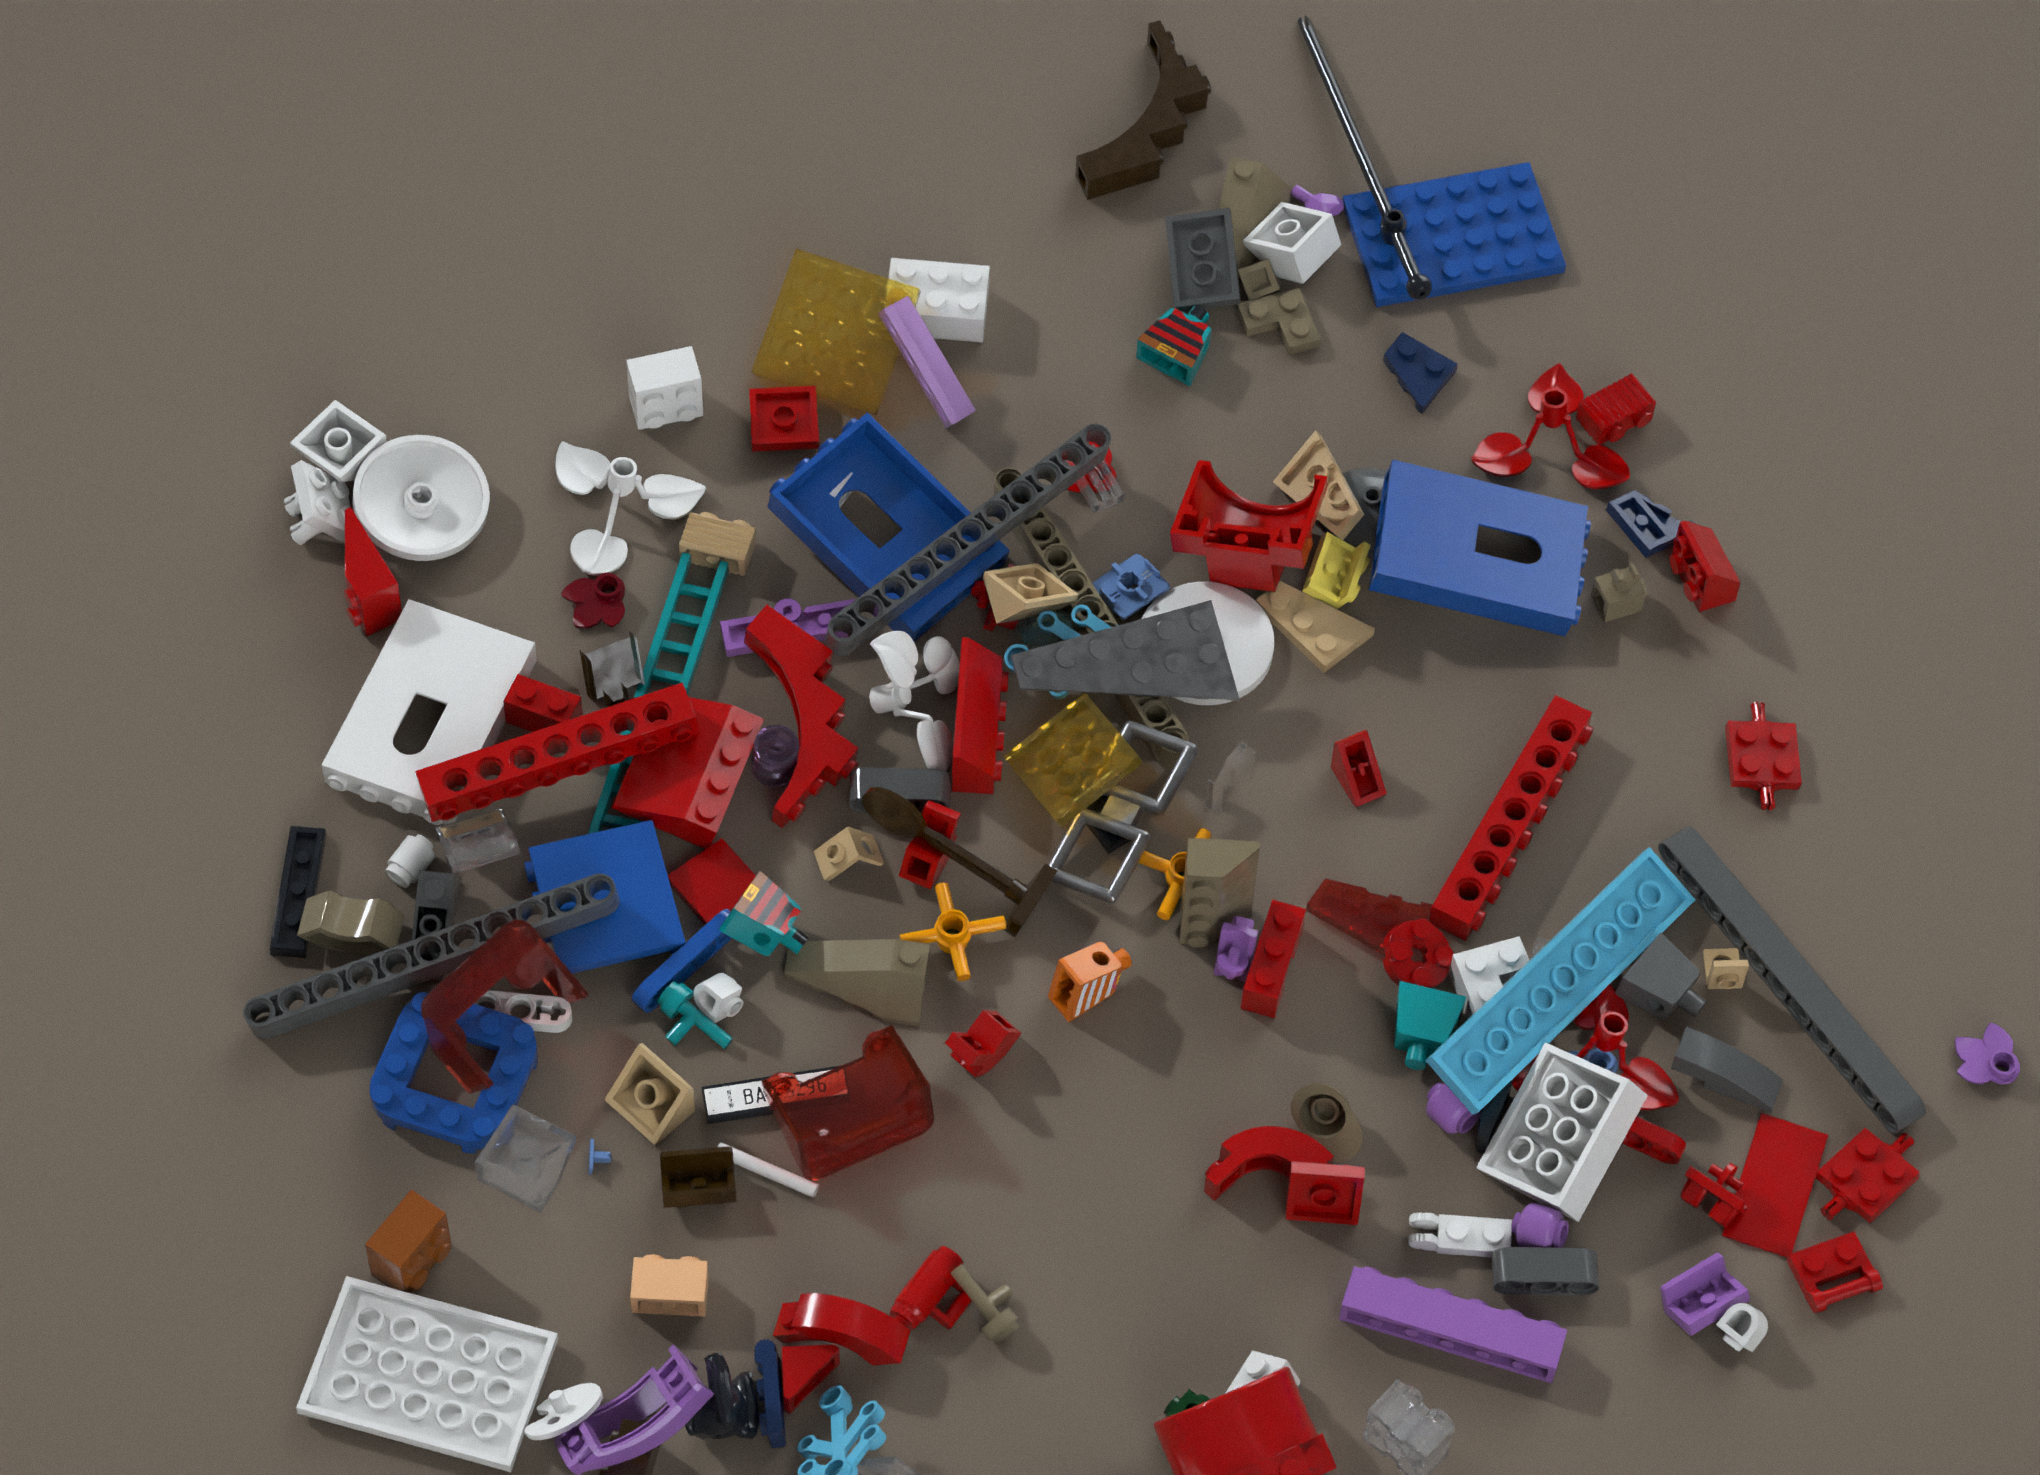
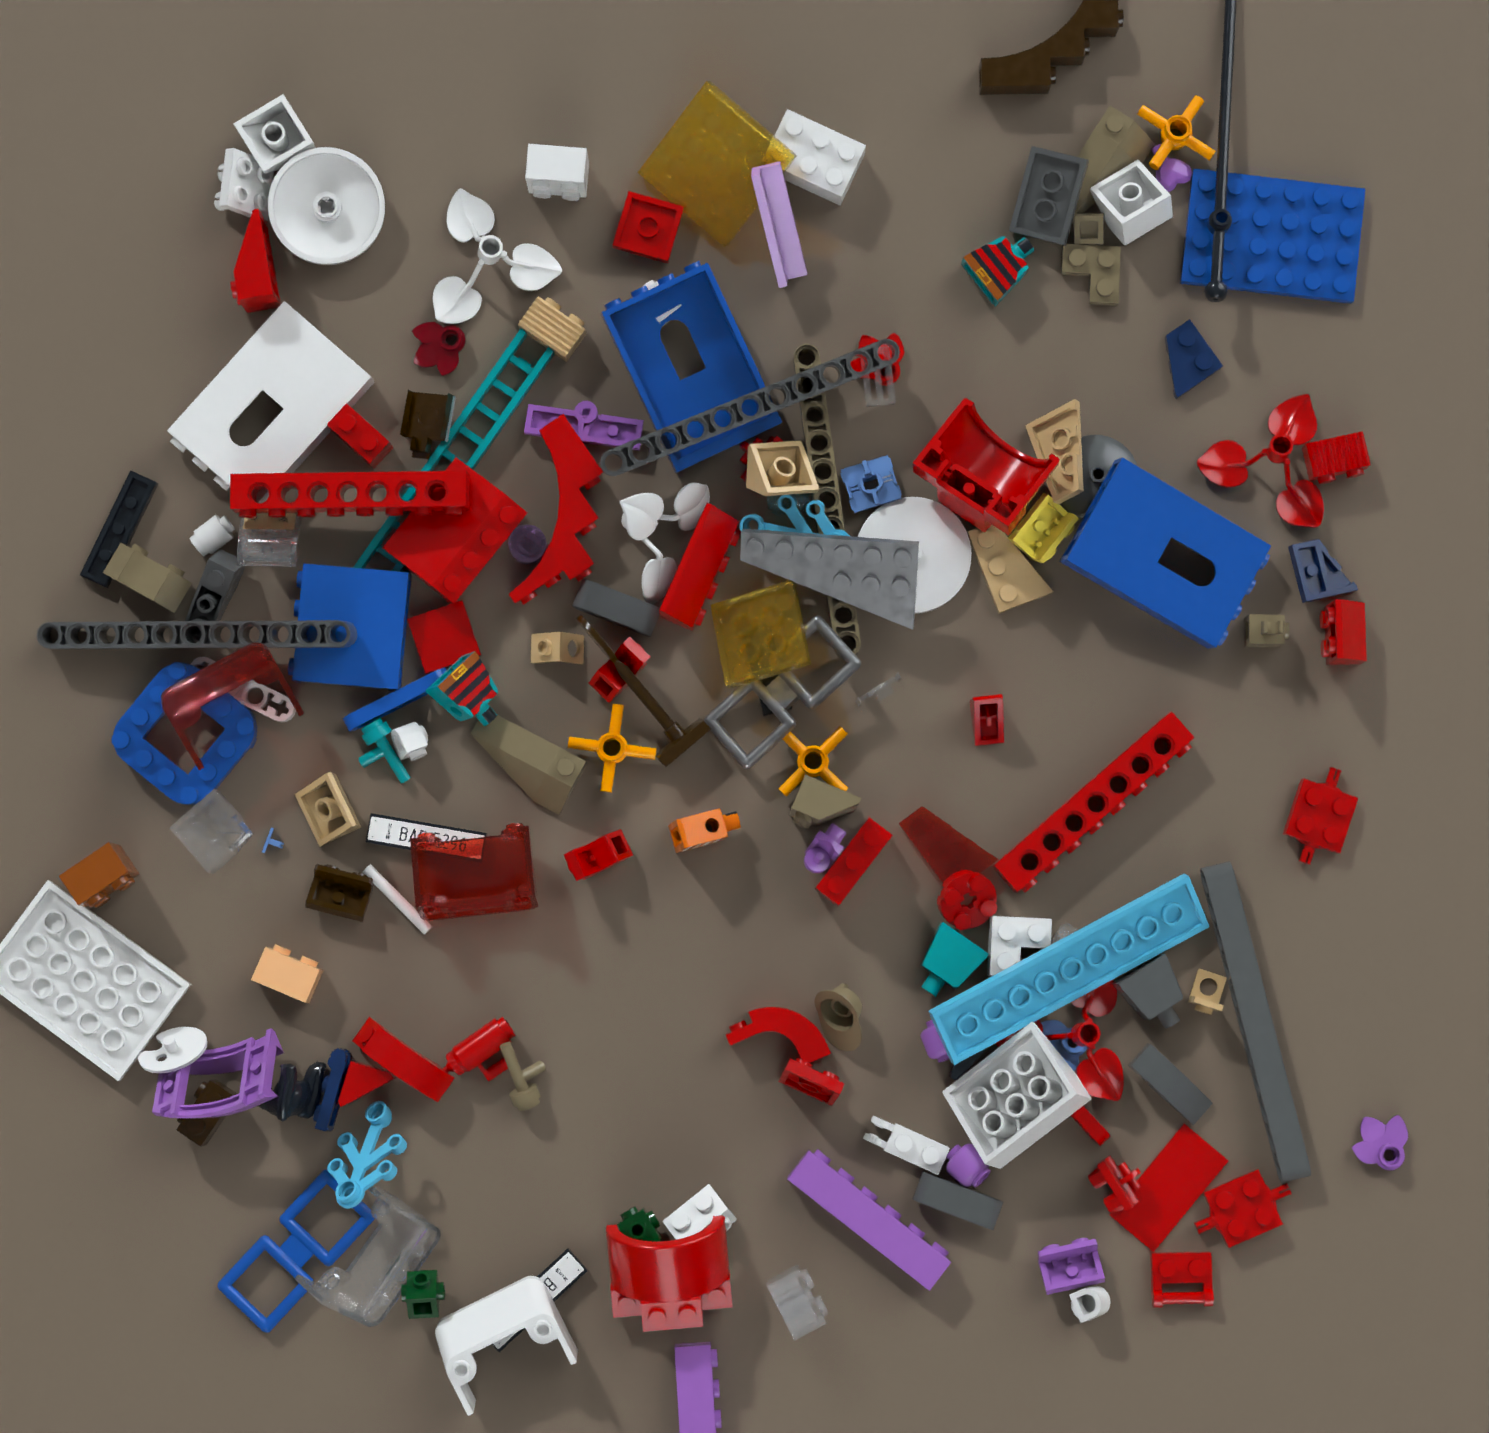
camera: 20 degrees right, 25 degrees up
(1310, 168) = (1173, 142): none -> light orange bar

